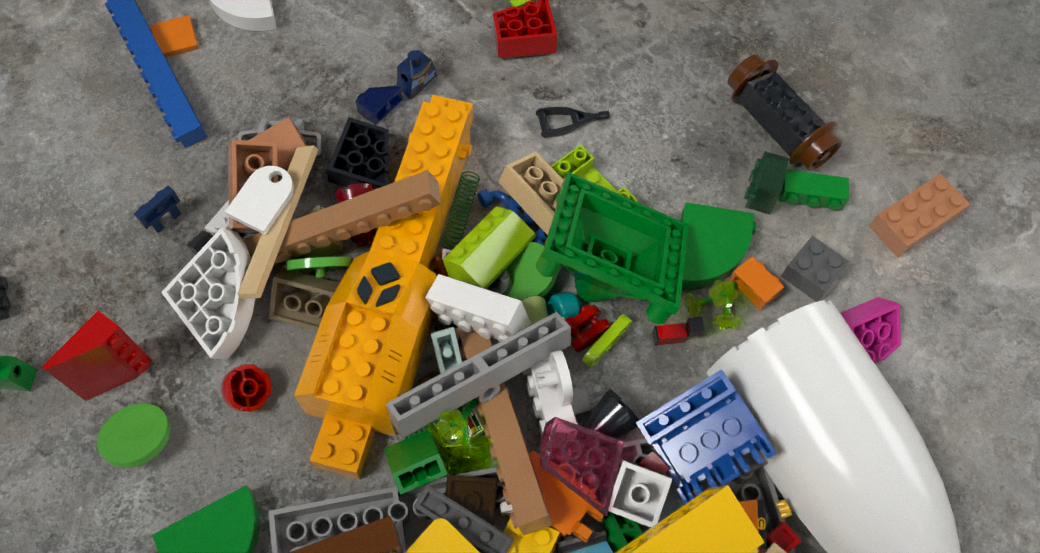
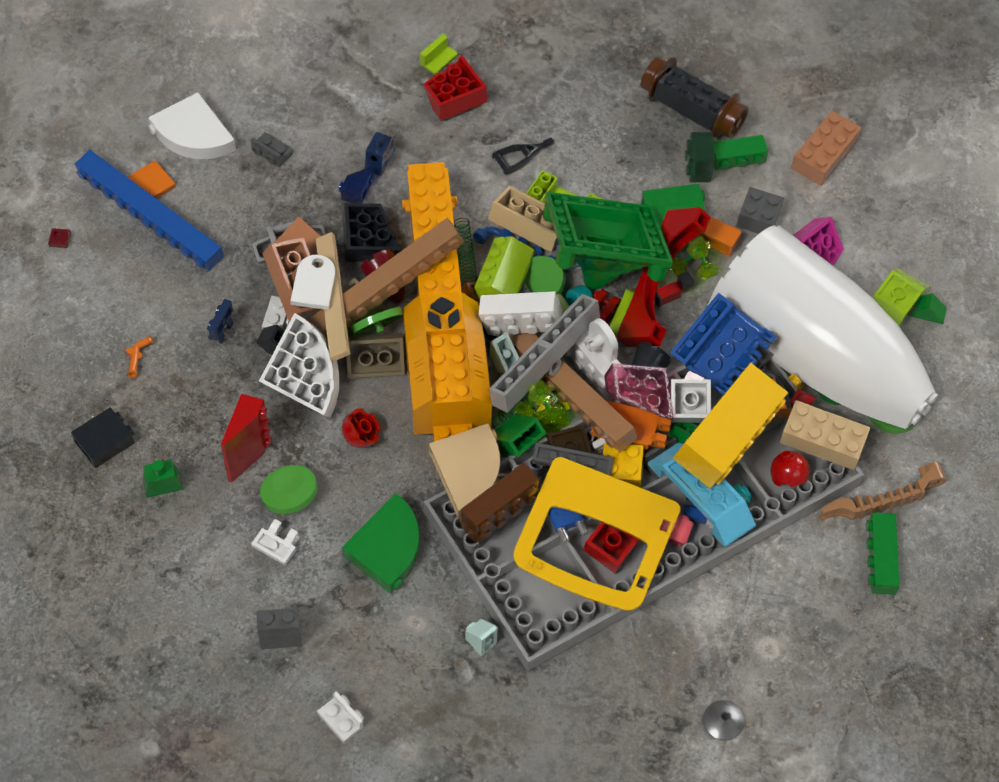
camera: 20 degrees left, 5 degrees down
(56, 67) = (59, 238): none -> dark red tile
(61, 217) = (134, 354): none -> orange piece
(85, 502) = (275, 547): none -> white plate
(310, 38) = (271, 149): none -> dark grey bracket
(334, 487) = (466, 464): none -> tan brick
(622, 361) = (640, 320): none -> red arch
(953, 430) = (899, 294): none -> lime slope
(983, 456) = (929, 308): none -> green slope

